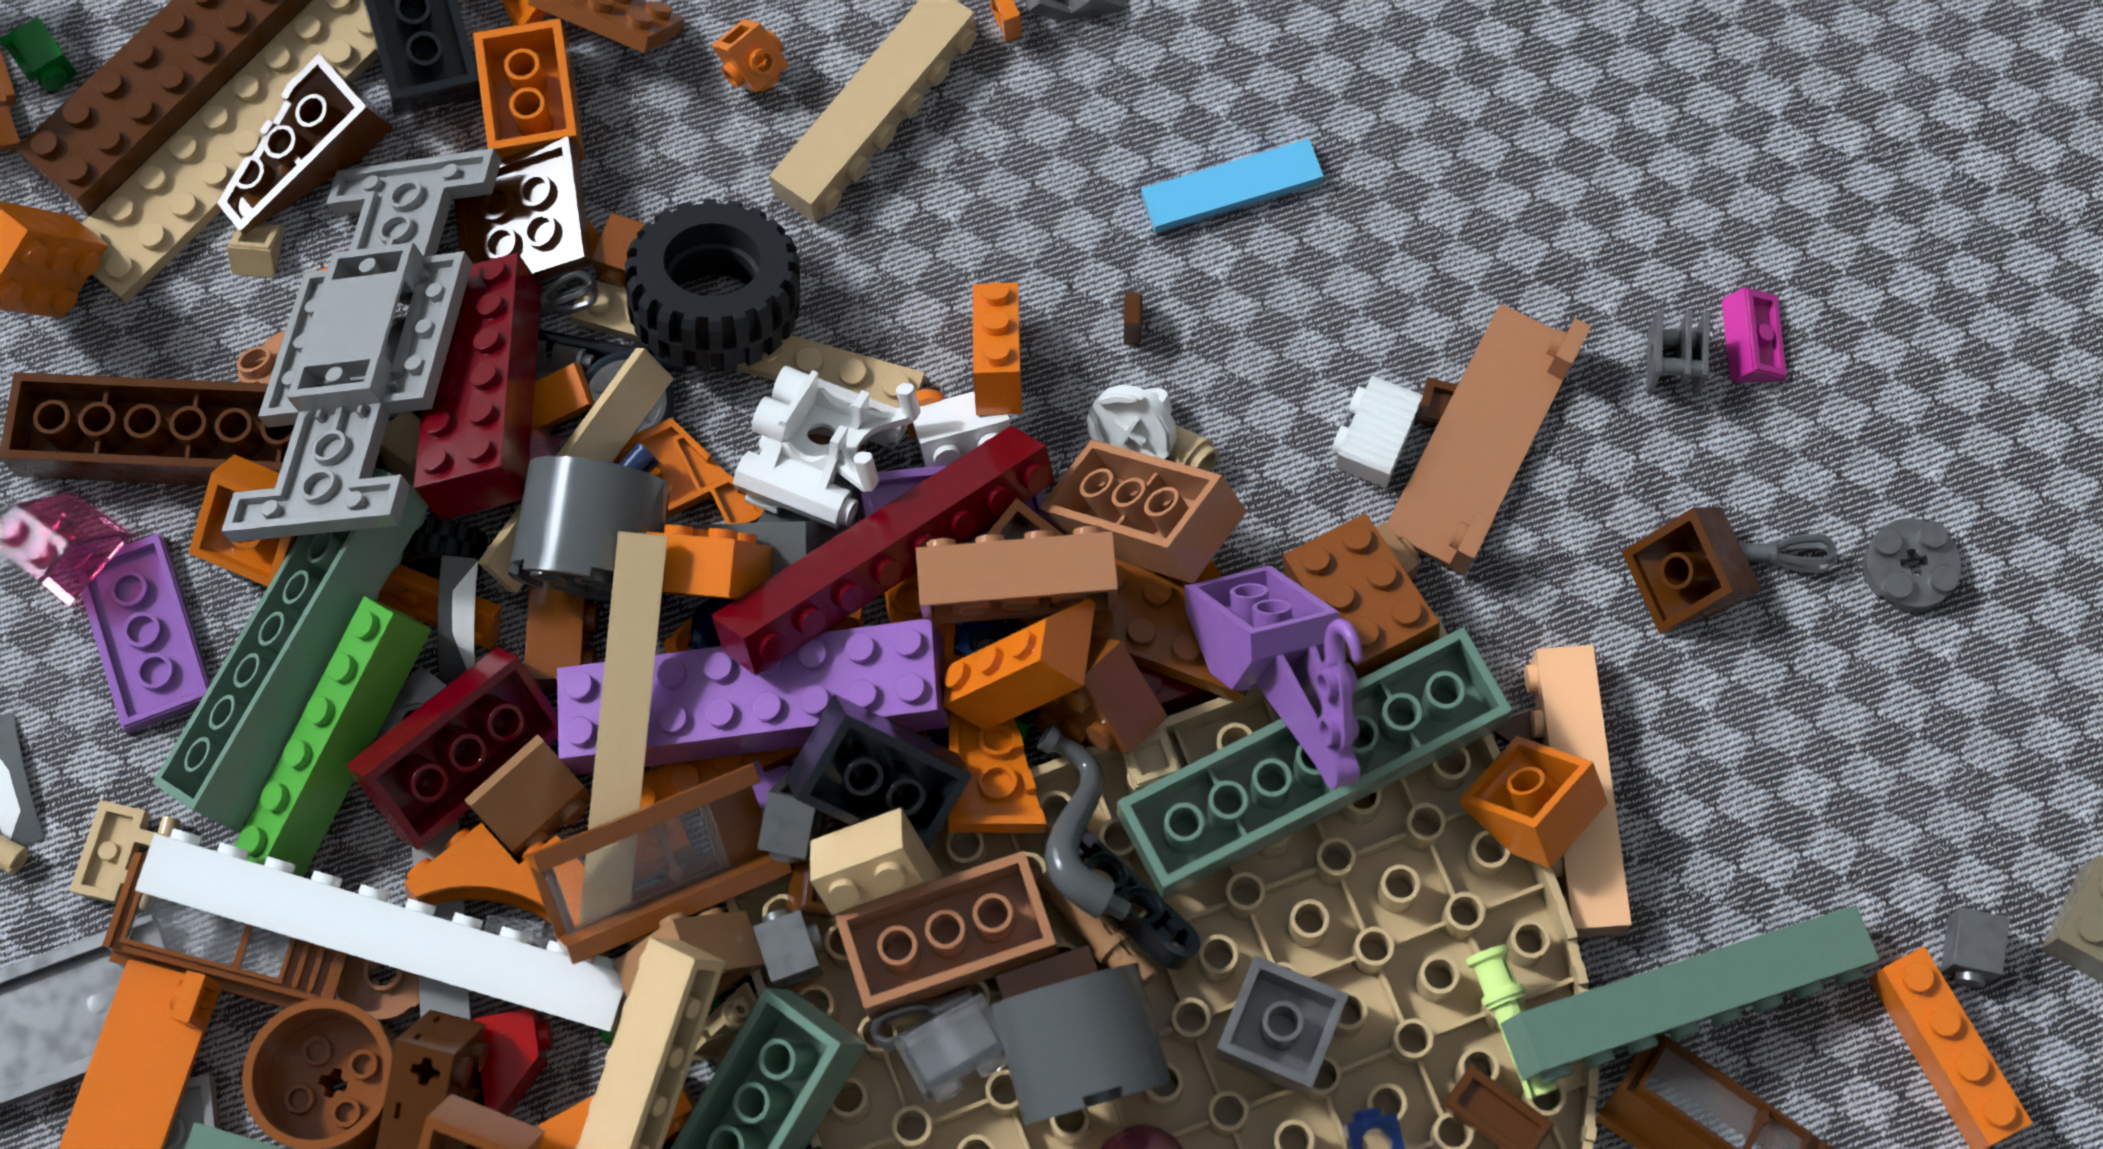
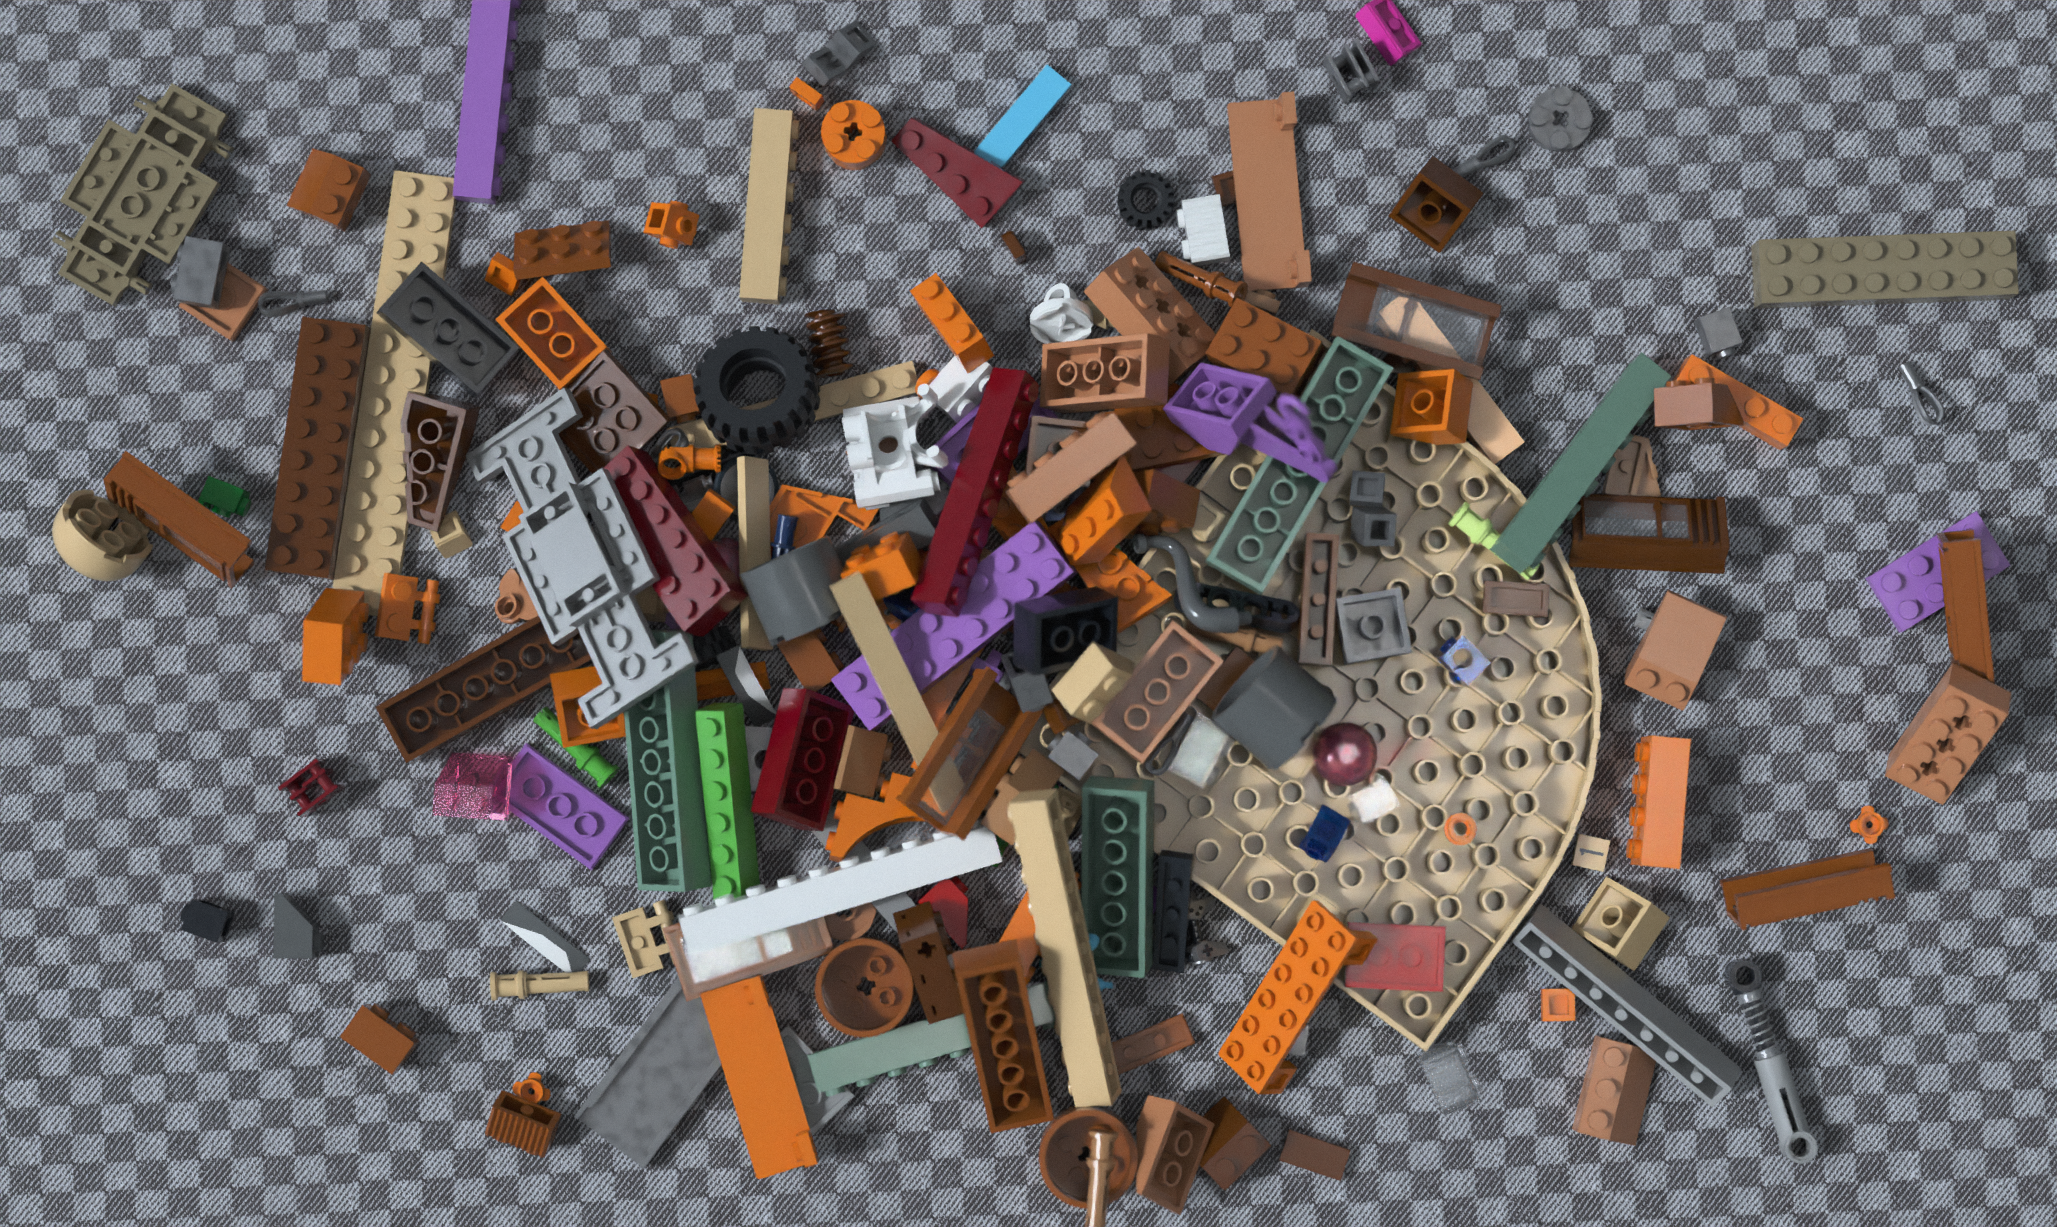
camera: 30 degrees left, 15 degrees up
(133, 285) = (397, 608): none -> orange plate
(216, 596) = (586, 756): none -> bright green pin
(581, 320) = (690, 459): none -> orange connector
(836, 291) = (828, 342): none -> reddish brown piece
(1028, 82) = (845, 118): none -> orange brick
(1128, 205) = (965, 177): none -> dark red wing
(1230, 946) = (1318, 599): none -> brick
(1251, 445) = (1142, 300): none -> nougat brick
(1312, 446) = (1212, 283): none -> dark orange pin
(1328, 331) = (1150, 181): none -> black tyre
(1363, 898) = (1373, 526): none -> flat silver brick
(1385, 849) = (1367, 489): none -> flat silver plate
(1582, 681) = (1415, 320): none -> piece
(1757, 1051) = (1633, 471): none -> medium nougat wing
(1892, 1015) = (1695, 406): none -> slope

